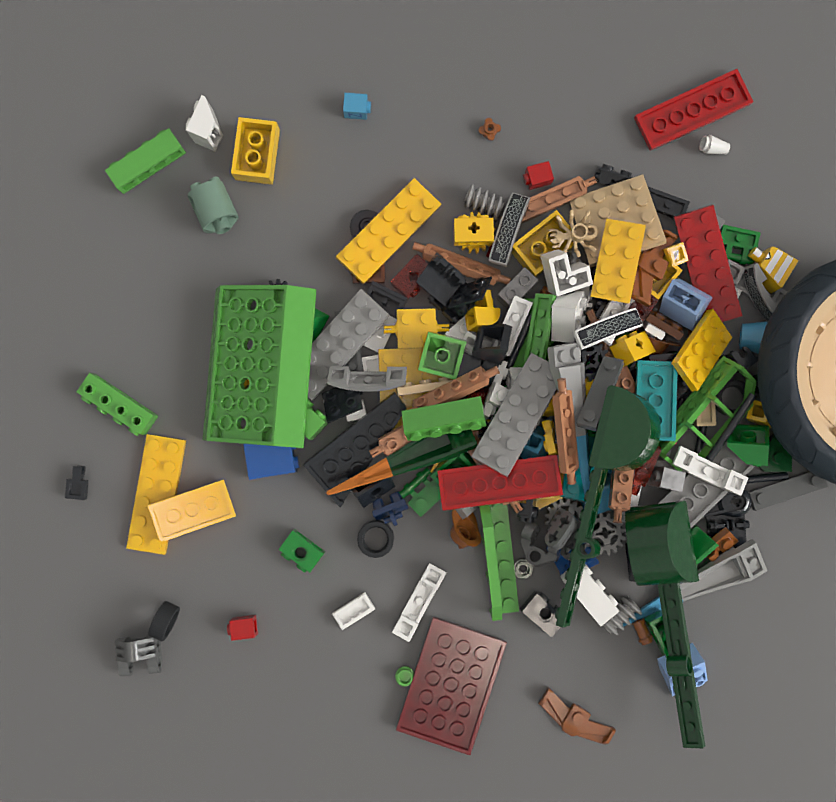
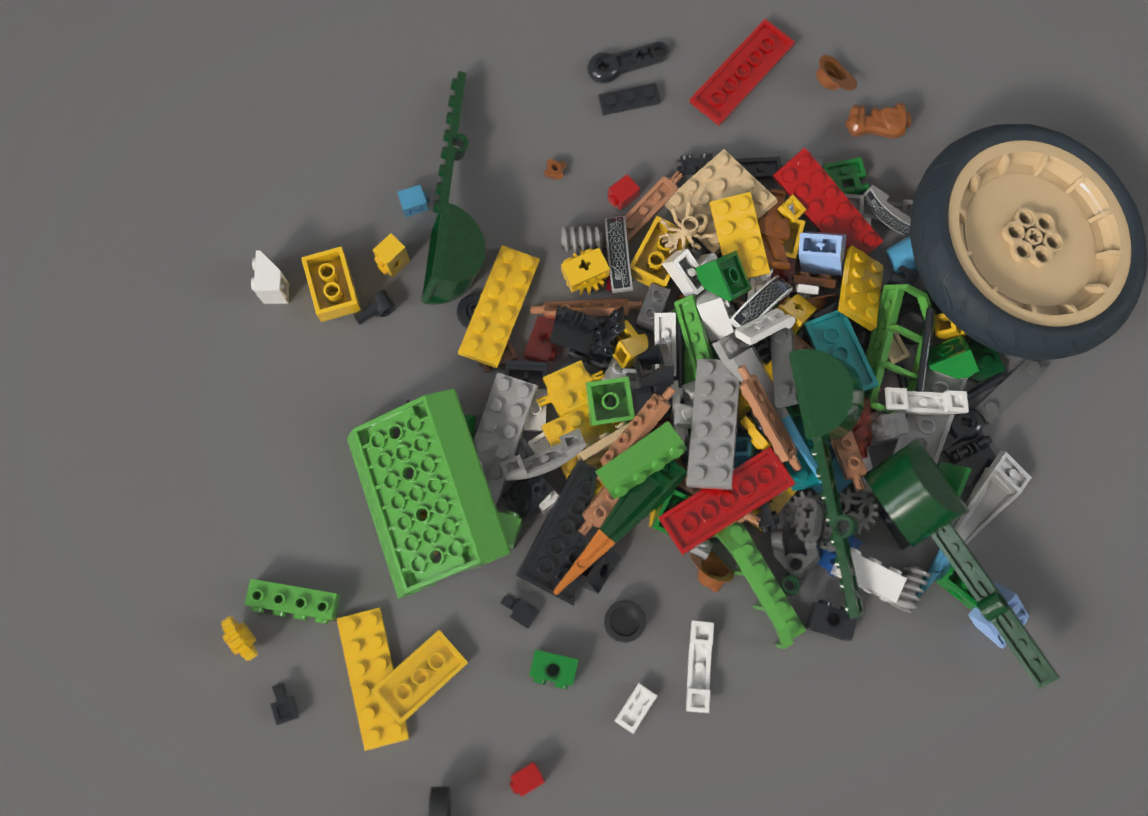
camera: 25 degrees left, 10 degrees down
(61, 417) = (239, 638): none -> yellow gear
(145, 161) = (221, 340): bright green brick -> none
(212, 206) = (310, 355): sand green cylinder -> none
(270, 460) = (478, 586): blue brick -> none
(288, 186) = (379, 305): none -> black pin
(298, 494) = (523, 612): none -> black plate
(315, 147) = (391, 256): none -> yellow brick
(376, 158) = (455, 239): none -> dark green plate
(390, 512) = (627, 585): dark blue hips -> none
(404, 676) = (720, 754): bright green plate -> none
(426, 497) = (658, 554): green plate -> none
(451, 686) = (773, 742): dark red plate -> none
(575, 720) = (916, 719): dark orange plate -> none
(583, 92) = (629, 99): none -> black plate
(587, 291) = (724, 276): none -> green slope
(593, 56) = (624, 62): none -> black beam
(600, 351) = (764, 326): none -> white plate
(642, 632) = (940, 595): dark orange pin -> none
(713, 145) = (777, 96): white cone -> none
(725, 540) = (977, 465): dark orange plate -> none
(773, 148) = (834, 75): none -> dark orange piece
(775, 265) = (891, 180): yellow torso -> none
(794, 209) = (882, 122): none -> dark orange animal

